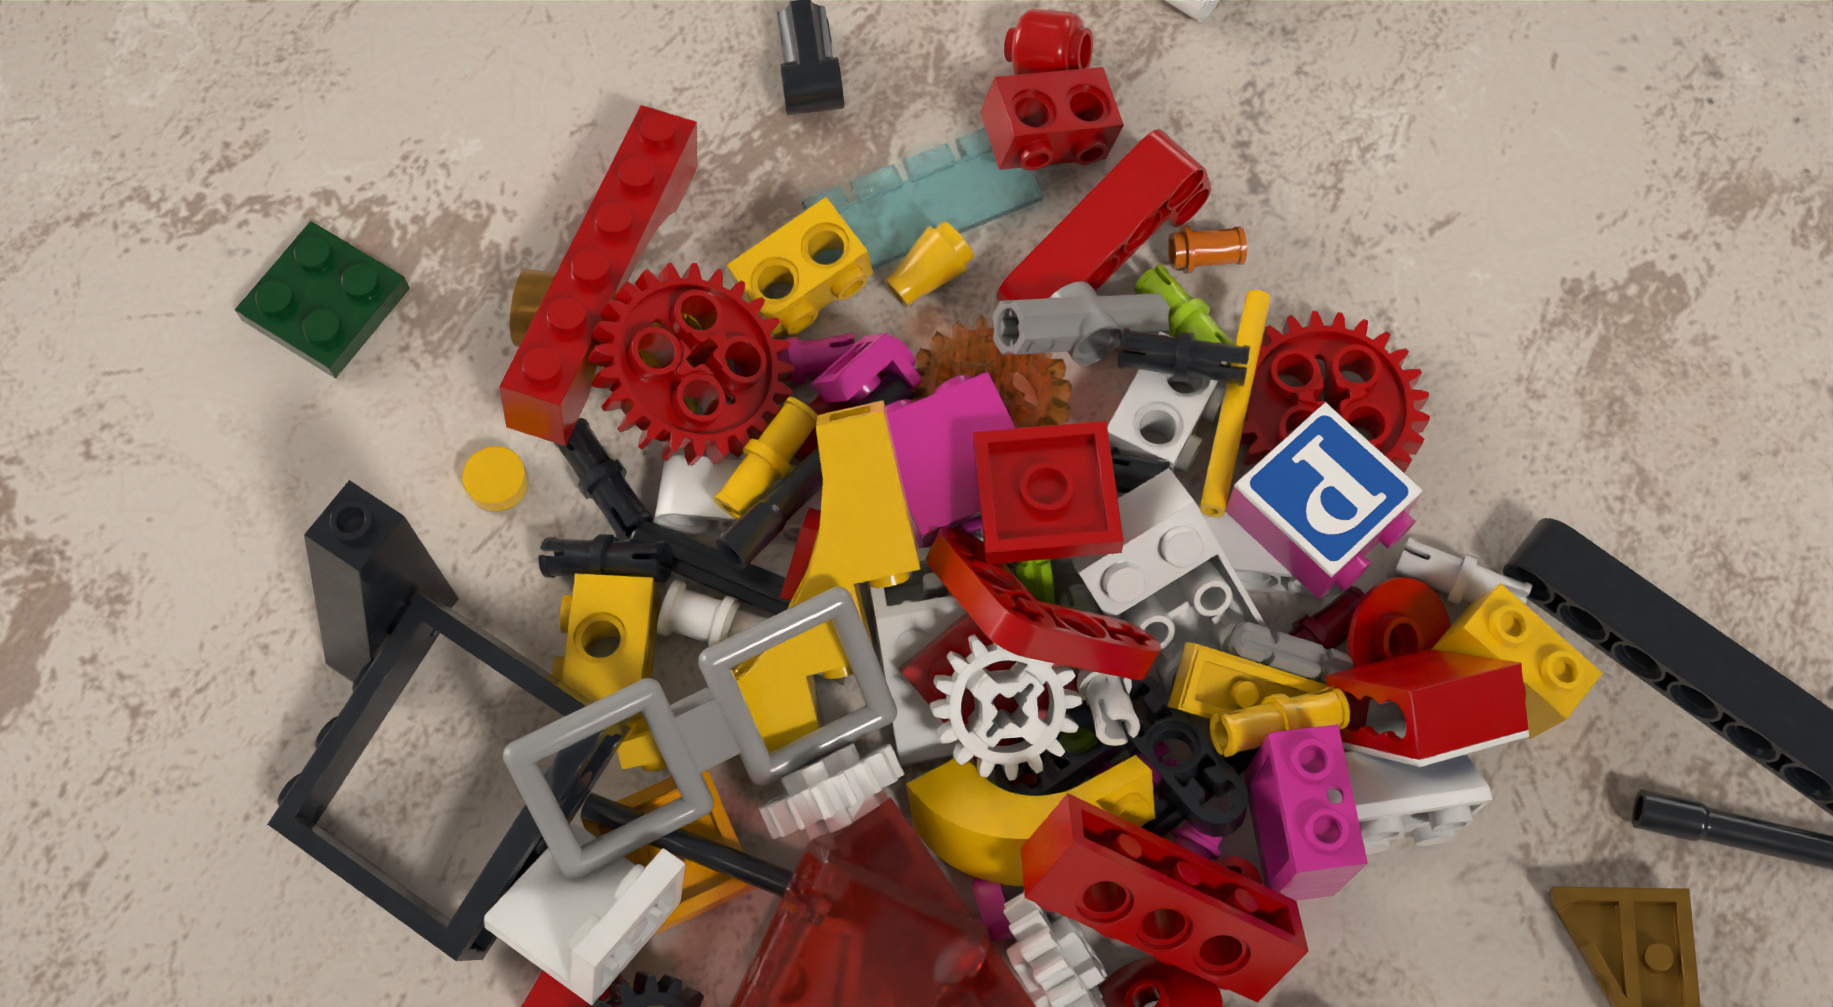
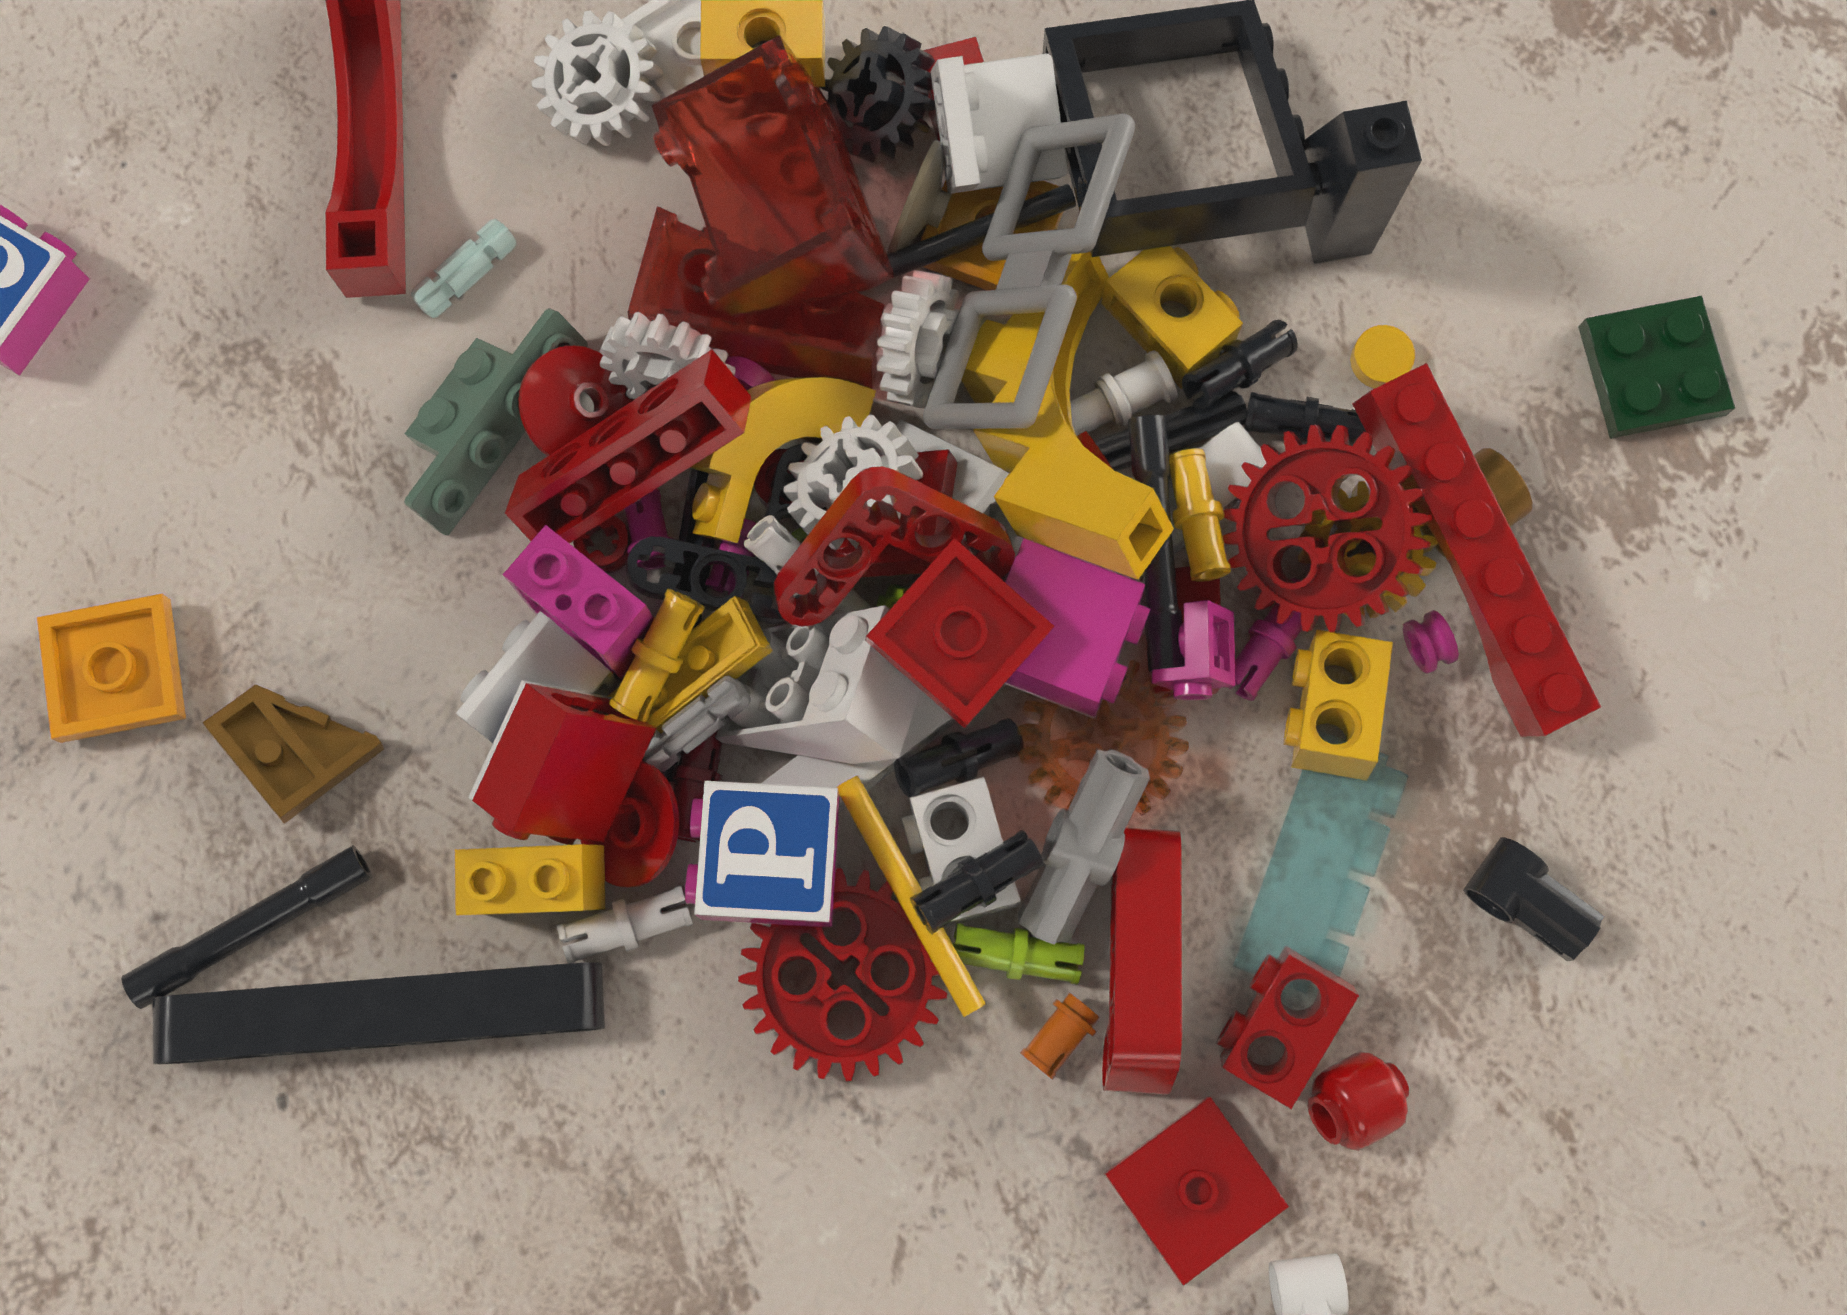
camera: 135 degrees right, 10 degrees up
(689, 251) = (1430, 641): none -> dark pink bush
(711, 916) = (925, 201): none -> dark tan dish
(930, 263) = (1255, 812): yellow cone -> none
(1206, 95) = (1196, 1190): none -> red plate

